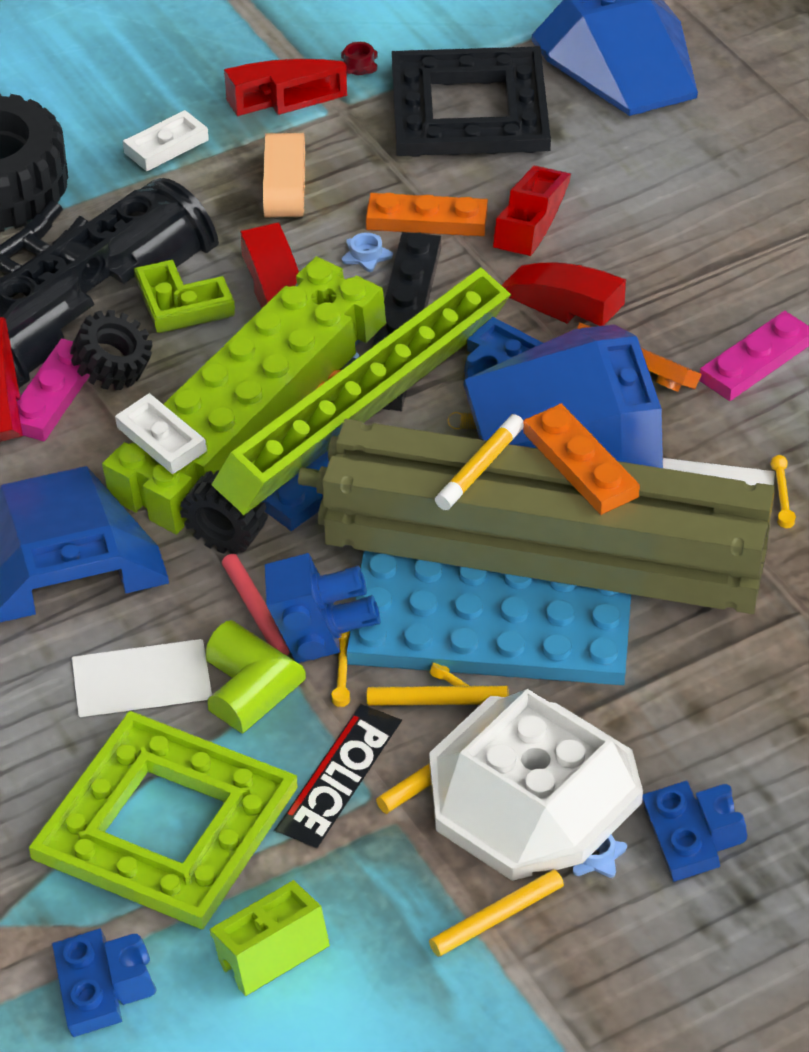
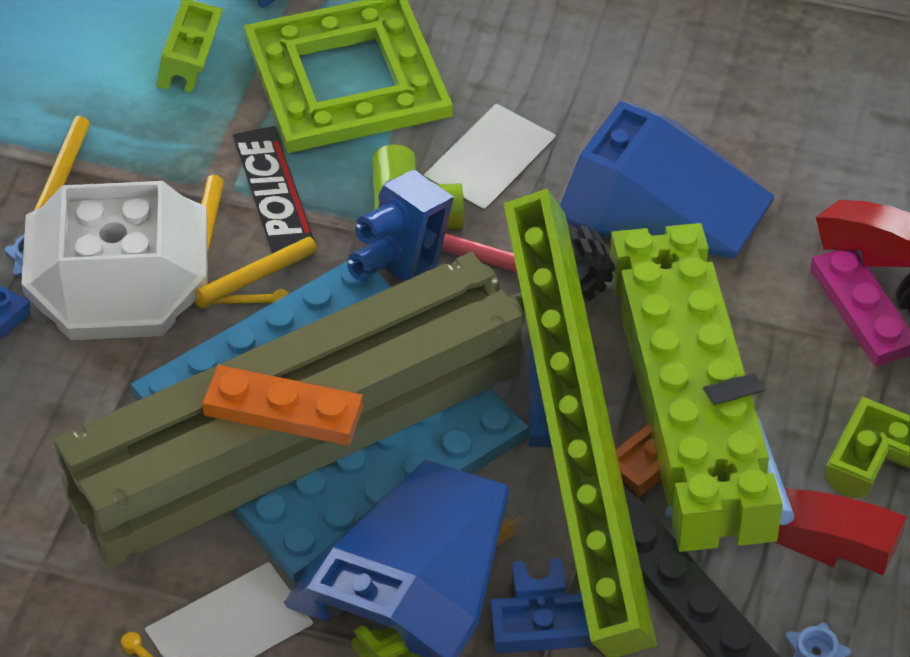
camera: 135 degrees right, 5 degrees up
(103, 365) = (845, 321): black tyre -> none
(161, 433) = (669, 241): white plate -> none
(254, 325) = (734, 388): none -> black piece
(341, 694) = (334, 236): yellow hinge -> none
(479, 462) = (362, 344): yellow bar -> none

